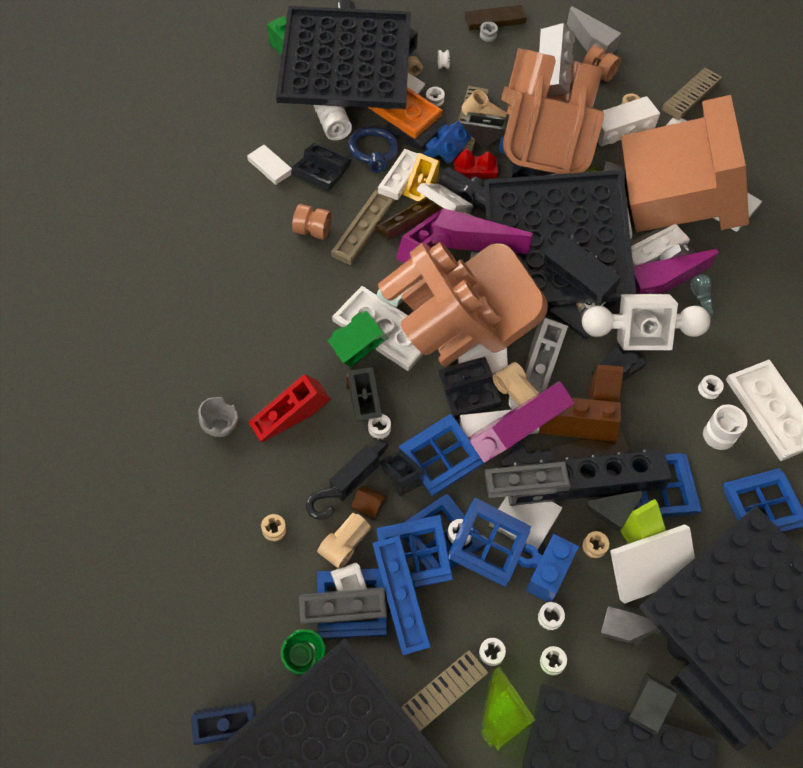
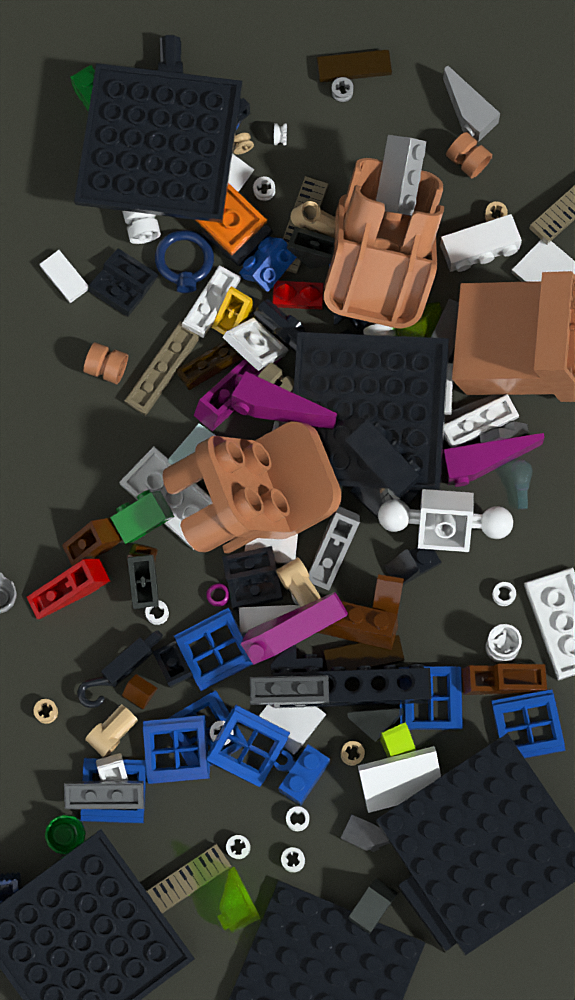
camera: 10 degrees right, 15 degrees up
(314, 360) = (92, 540): none -> reddish brown slope
(401, 595) = (159, 789): blue plate -> none
(437, 399) = (218, 603): none -> magenta piece
(730, 461) = (503, 679): none -> reddish brown slope

